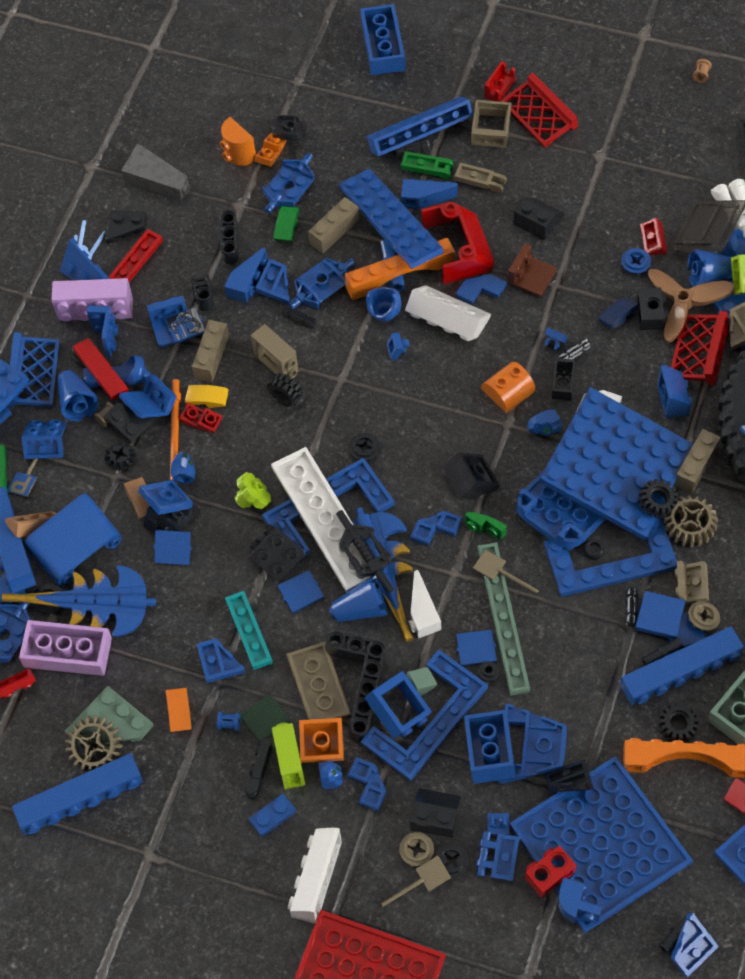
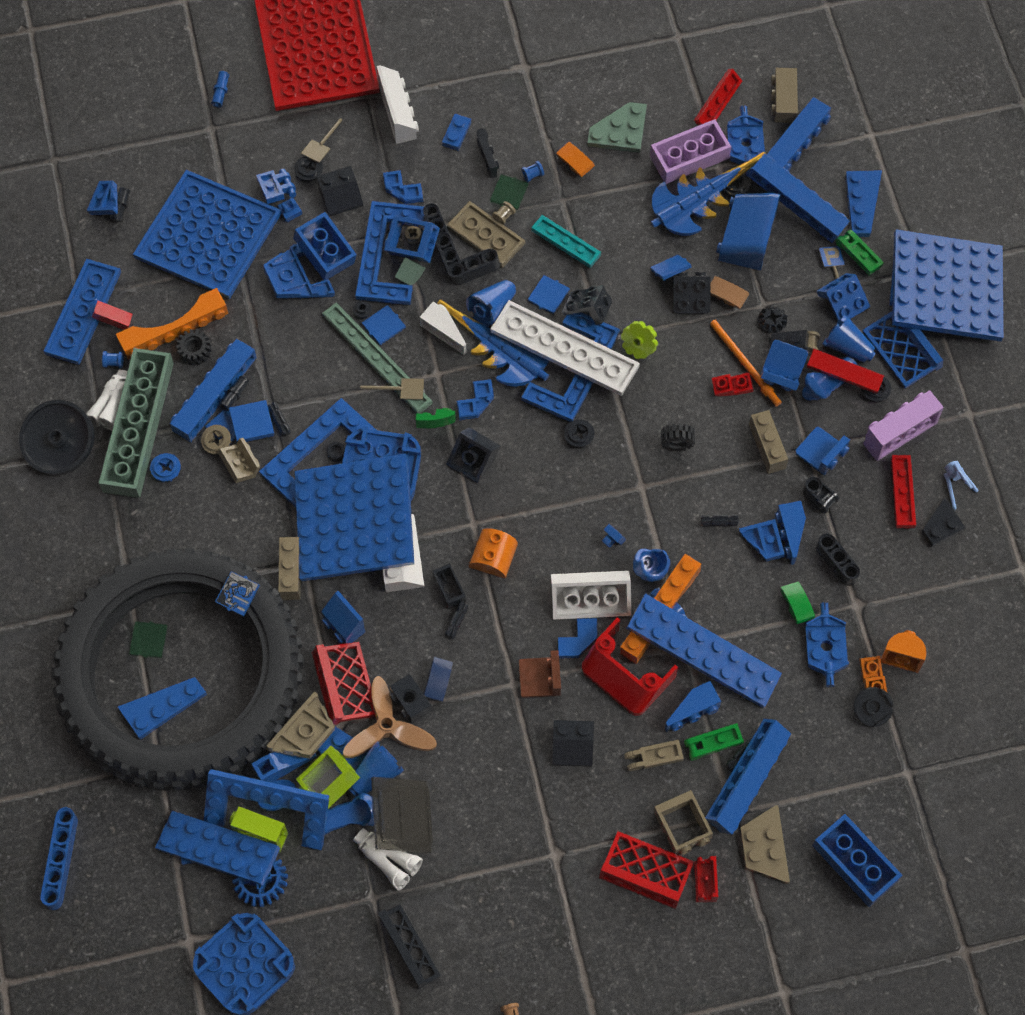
camera: 145 degrees right, 5 degrees up
(27, 524) = (788, 220): medium nougat slope -> none
(77, 264) = (943, 453): blue wing -> none
(77, 794) = (602, 70): blue brick -> none
(84, 740) = (616, 101): dark tan gear -> none
(103, 322) = (869, 411): blue bracket -> none
(154, 174) = (956, 585): flat silver slope -> none
(165, 497) = (704, 295): blue tile -> none
(183, 469) = (711, 330): blue rock -> none
(185, 325) = (808, 454): piece -> none
(207, 394) = (741, 404): yellow slope -> none
(217, 661) = (572, 207): blue wing -> none
(274, 352) = (709, 462): dark tan window -> none
(287, 692) = (504, 212): none -> dark tan bush
(288, 755) = (469, 164): lime window -> none
(312, 292) = (723, 577): blue plate -> none
(321, 740) = (450, 185): orange brick -> none
(330, 775) = (433, 174): blue rock -> none
(333, 225) = (753, 622): dark tan brick -> none
(373, 565) = (499, 324): black bar -> none
(412, 841) = (342, 156): dark tan gear -> none
(439, 86) = (764, 846): none -> dark tan wing
(545, 423) = (439, 534): blue rock -> none
(553, 874) = (227, 186): red brick -> none
(556, 336) = (480, 623): blue tile -> none
(570, 778) = (251, 256): black wing -> none
(571, 904) = (203, 174): blue brick -> none
(636, 254) = (449, 738): blue gear -> none
(653, 237) = (451, 784): red slope -> none
(665, 491) = (296, 489): black tyre -> none
(690, 528) = (256, 505): dark tan gear -> none

